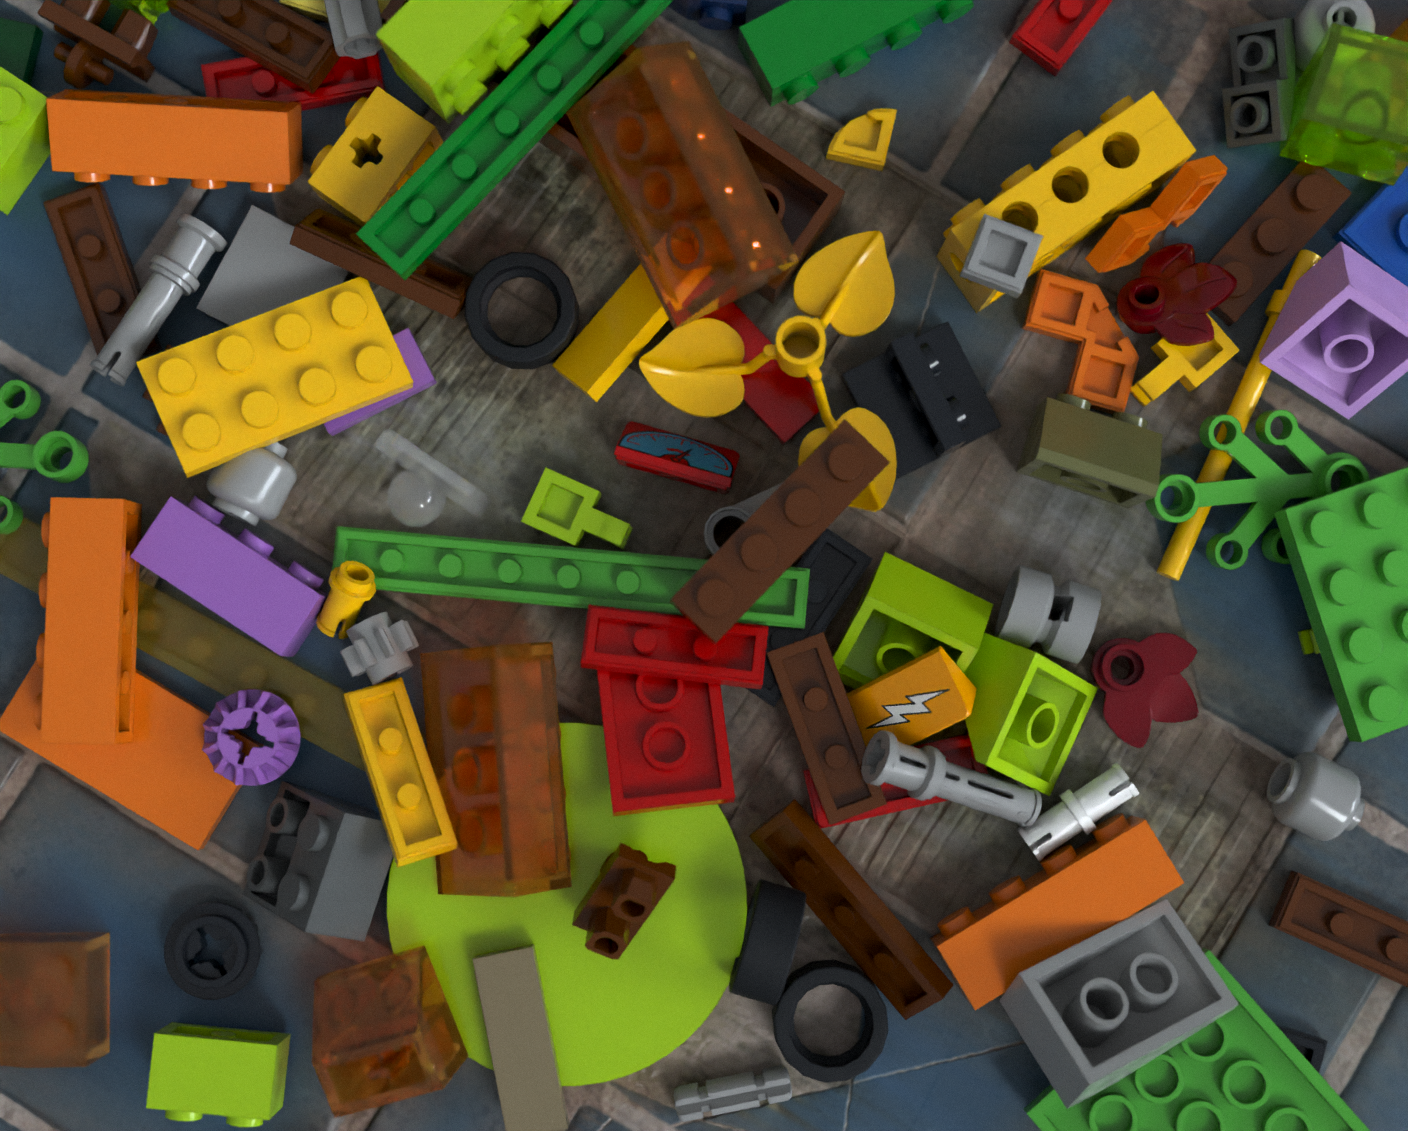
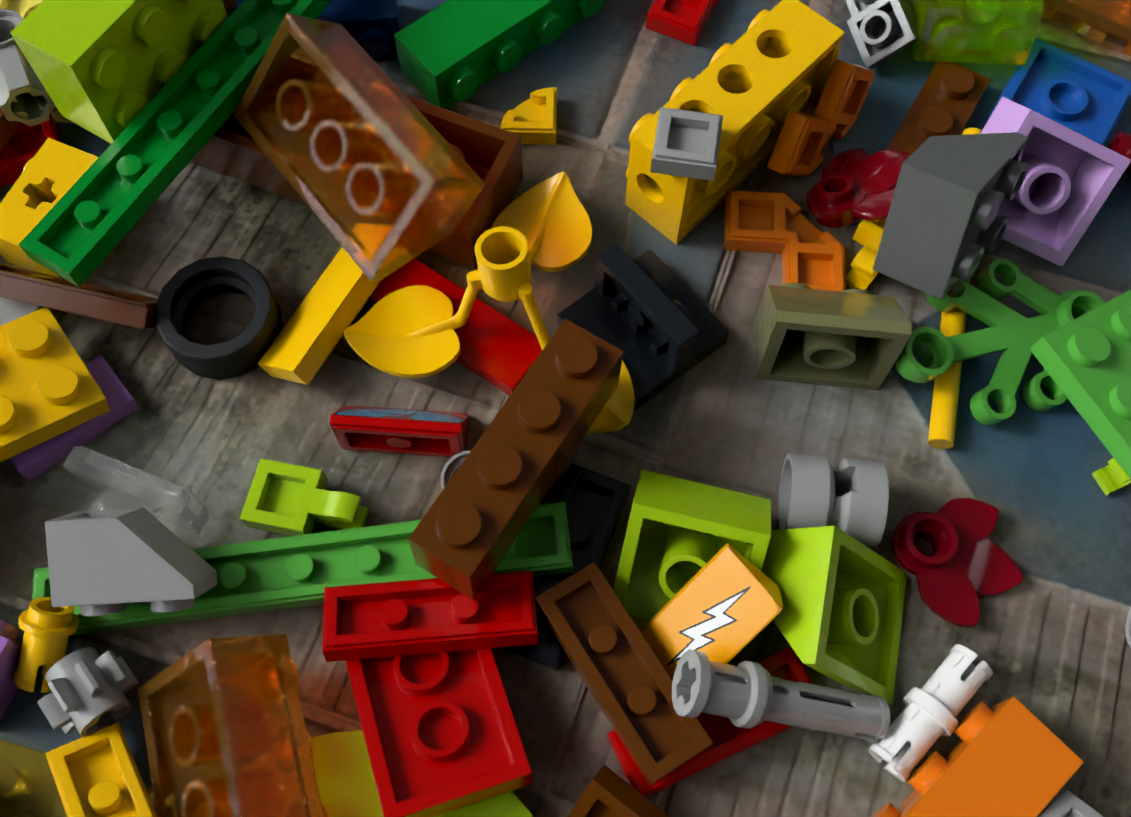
camera: 15 degrees left, 20 degrees down
(424, 548) = (120, 559): none -> light grey slope
(1236, 369) = (950, 208): none -> dark grey slope

